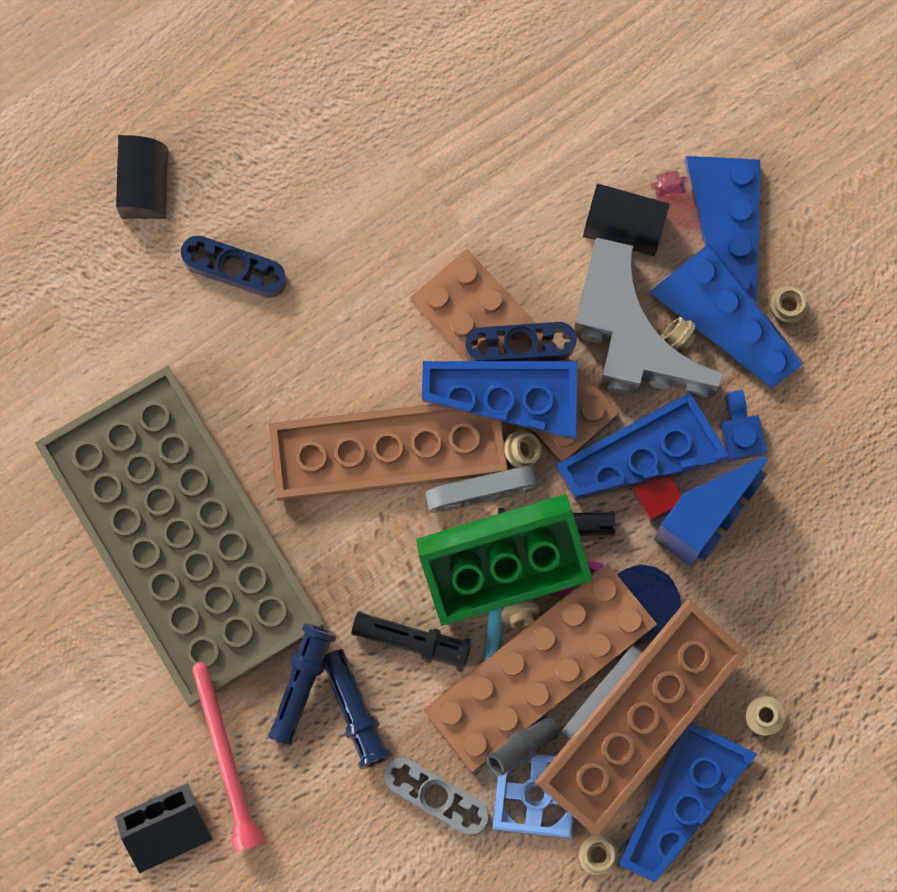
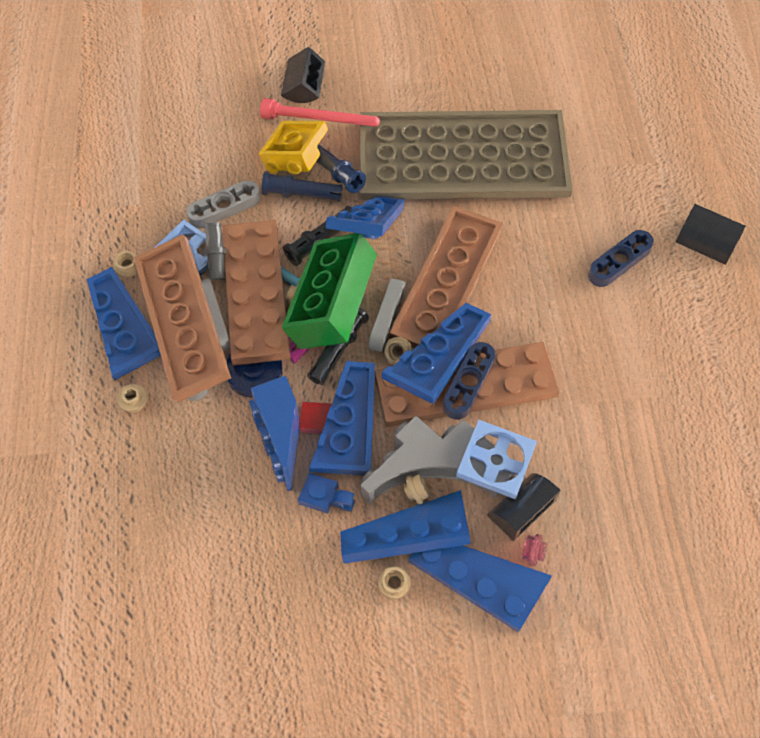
camera: 120 degrees right, 15 degrees down
(303, 752) = (293, 146): none -> yellow plate
(377, 567) = (369, 219): none -> blue wing
(600, 231) = (505, 437): none -> light blue piece

